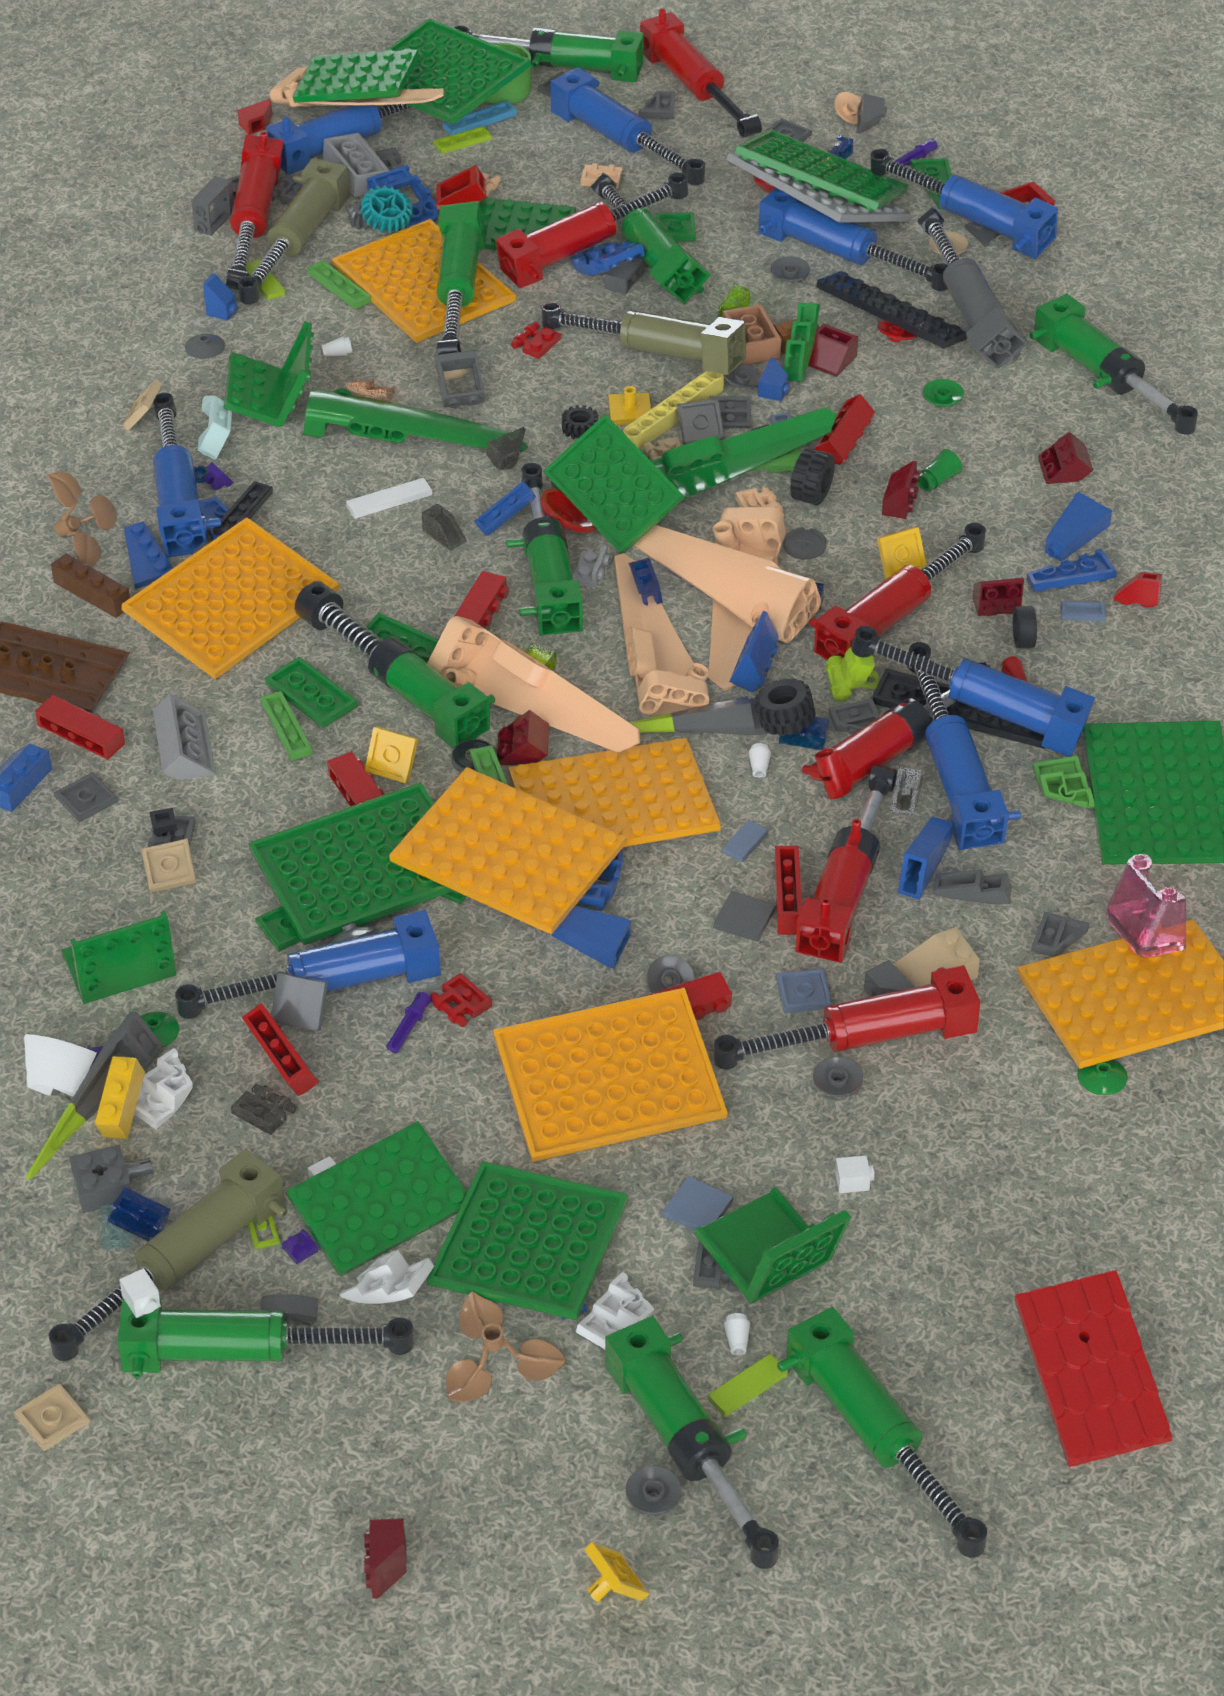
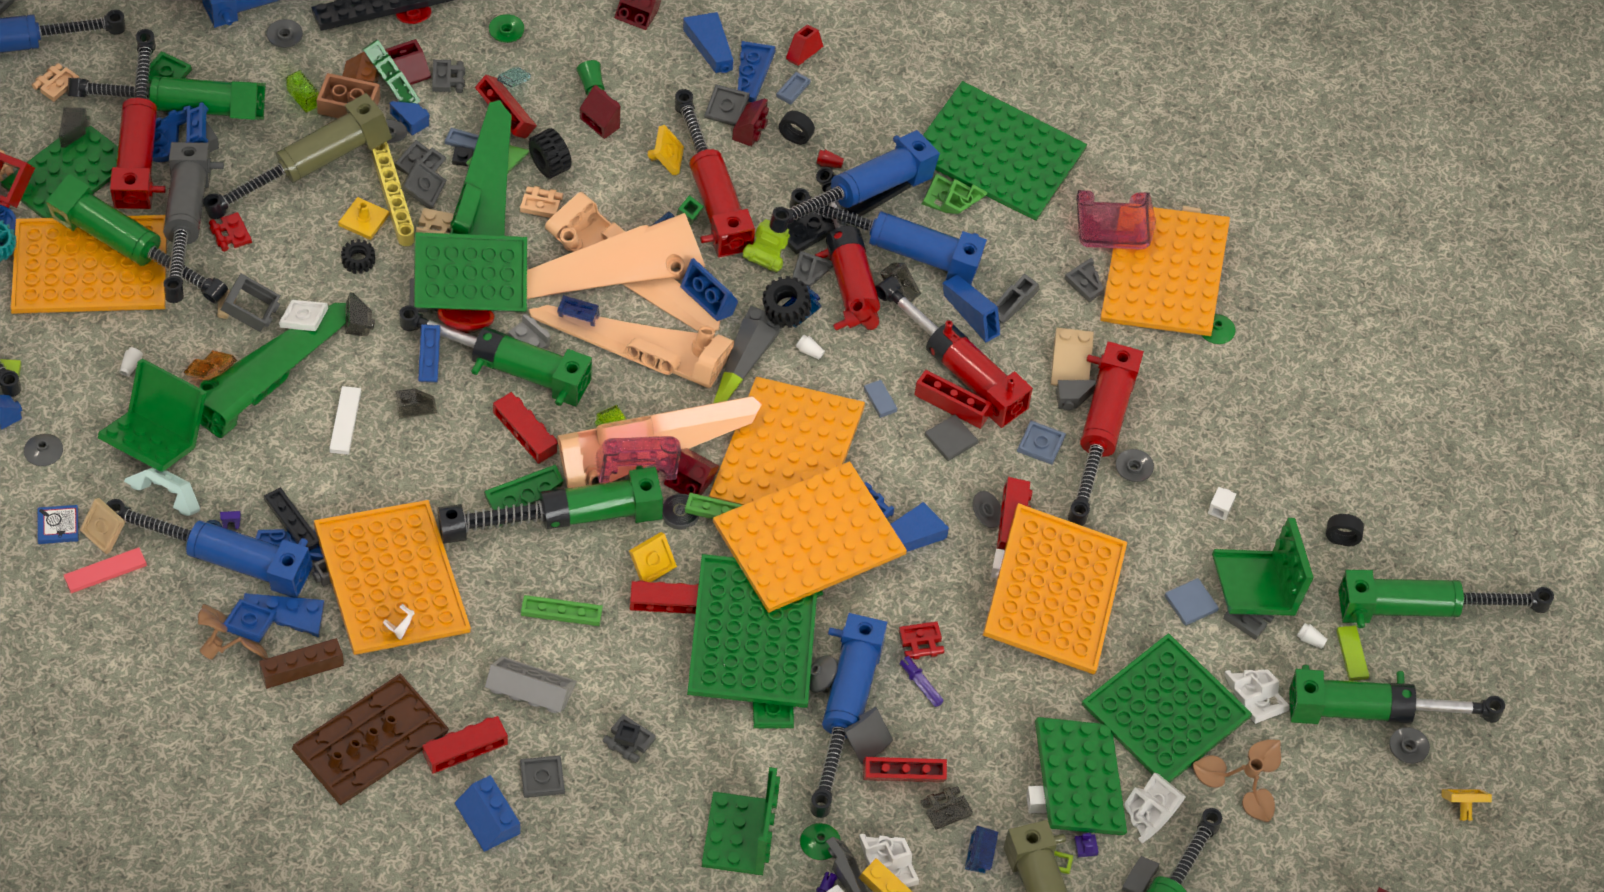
camera: 65 degrees left, 10 degrees up
(105, 433) = (105, 570): none -> coral tile
(109, 532) = (249, 620): none -> blue tile
(128, 386) = (58, 524): none -> tile
(162, 614) = (401, 629): none -> white piece
(169, 865) = (663, 754): tan tile -> none
(220, 1153) = (981, 849): none -> clear blue hinge
(311, 692) = (536, 577): green plate -> none
(339, 284) = (46, 321): bright green plate -> none
(471, 659) = (659, 451): none -> clear pink windscreen
(479, 418) = (303, 315): none -> white tile
(553, 198) = (73, 125): none -> clear smoke slope
(572, 279) = (190, 175): none -> dark grey piece
(805, 543) = (605, 197): dark grey tile -> none
(842, 595) = (691, 209): none -> green brick
(844, 380) = (442, 76): none -> dark grey plate
(887, 420) = (514, 77): none -> clear light blue tile
(908, 1298) = (1344, 521): none -> black tyre
(1007, 567) = (726, 105): none -> dark grey tile
(1093, 1368) = (1457, 466): red piece -> none

